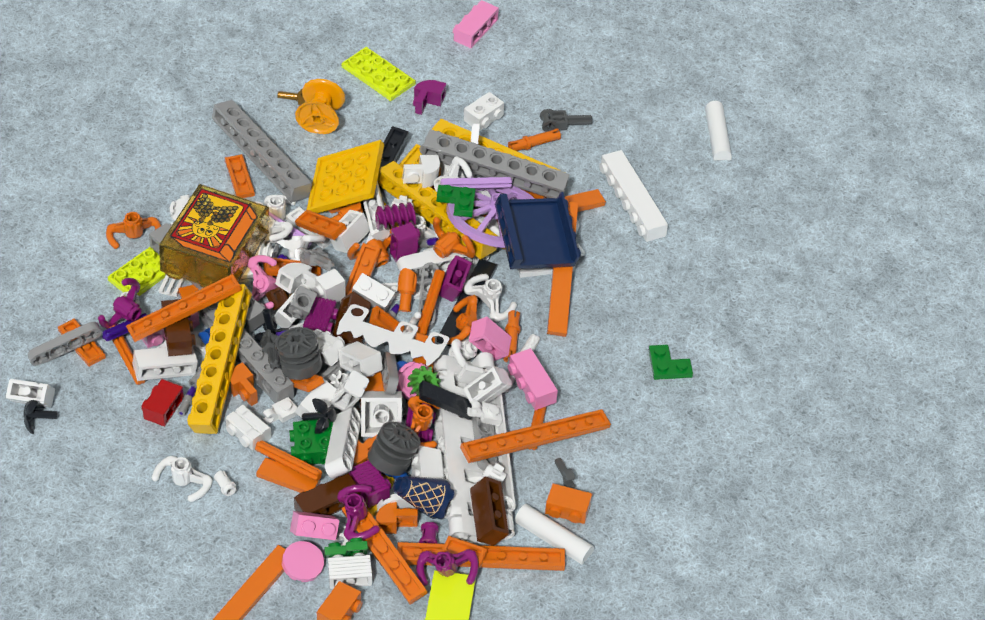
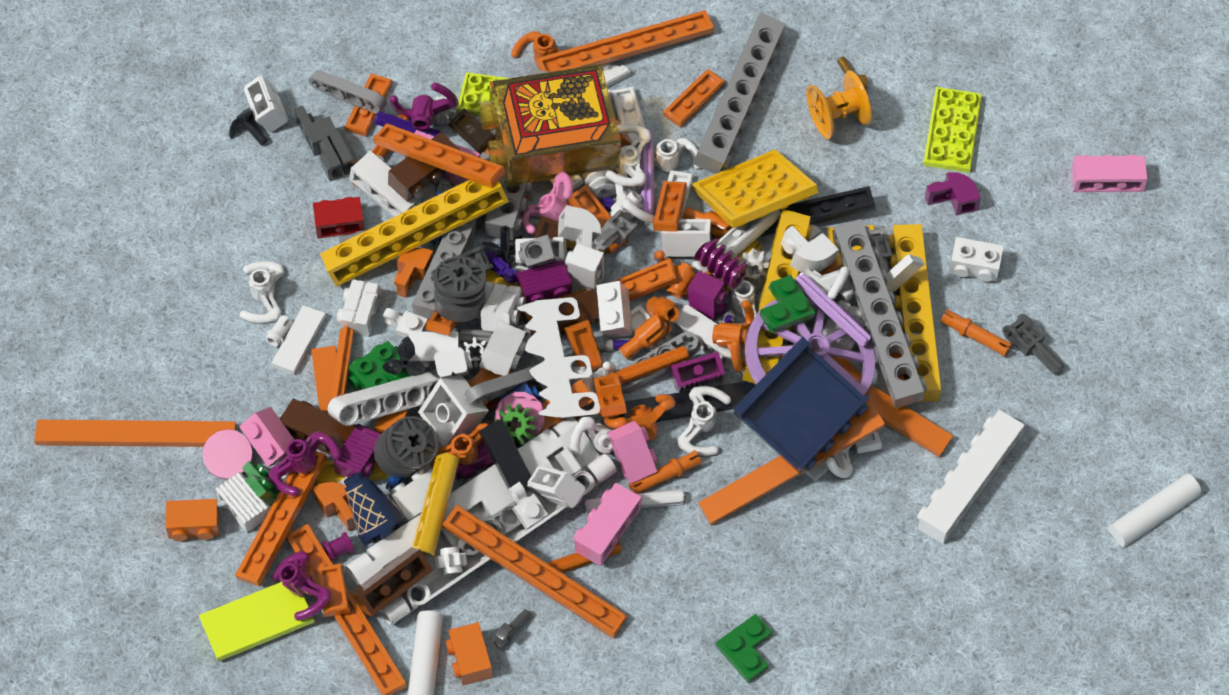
camera: 60 degrees right, 10 degrees up
(93, 376) = (327, 141): none -> dark grey plate
(152, 297) = (471, 131): none -> dark brown tile
(169, 183) = (629, 43): none -> orange plate
(239, 474) = (298, 340): none -> white tile
(391, 271) = (663, 307): none -> orange arm
(436, 323) = (609, 396): none -> orange brick
(449, 454) = (435, 504): none -> yellow brick

